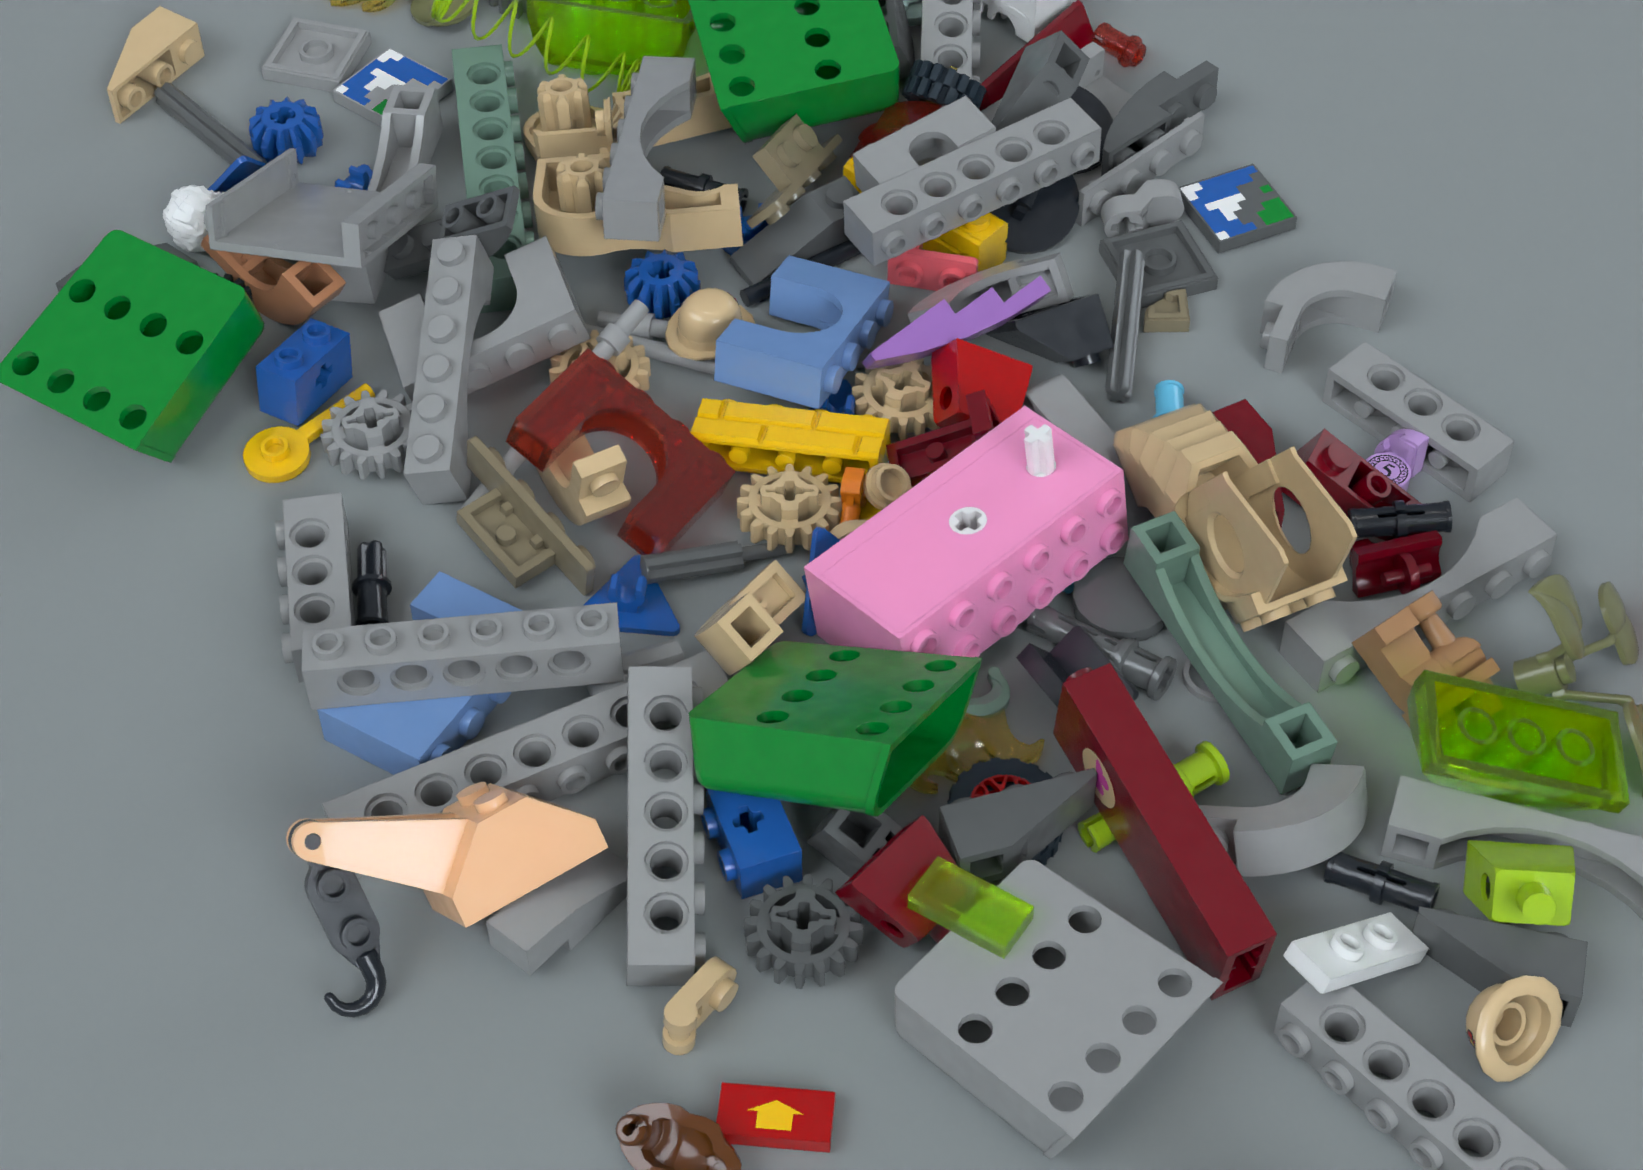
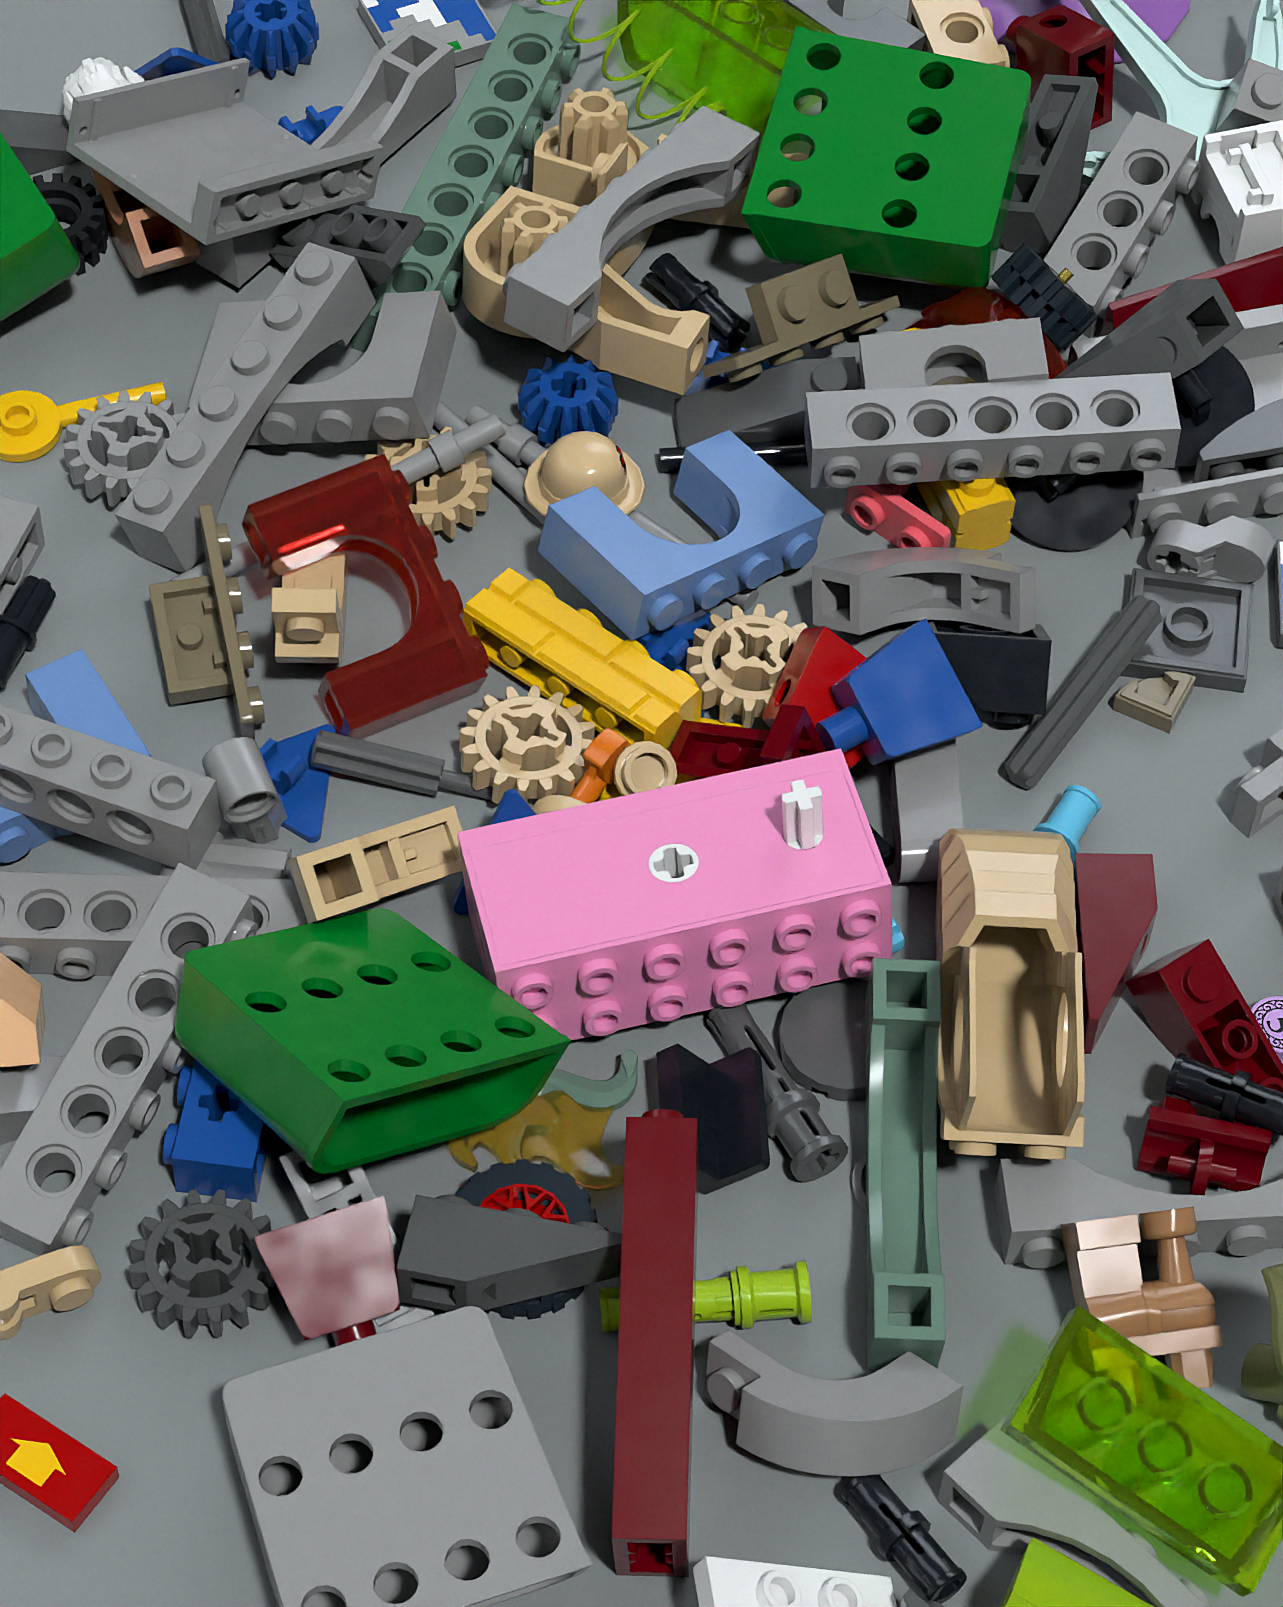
camera: 25 degrees right, 5 degrees up
(304, 371) = (98, 340): blue brick -> none
(633, 605) = (245, 789): none -> light grey piece
(942, 325) = (822, 602): medium lavender slope -> none
(970, 907) = (368, 1331): clear neon green tile -> none
(1032, 363) = (899, 700): none -> blue torso

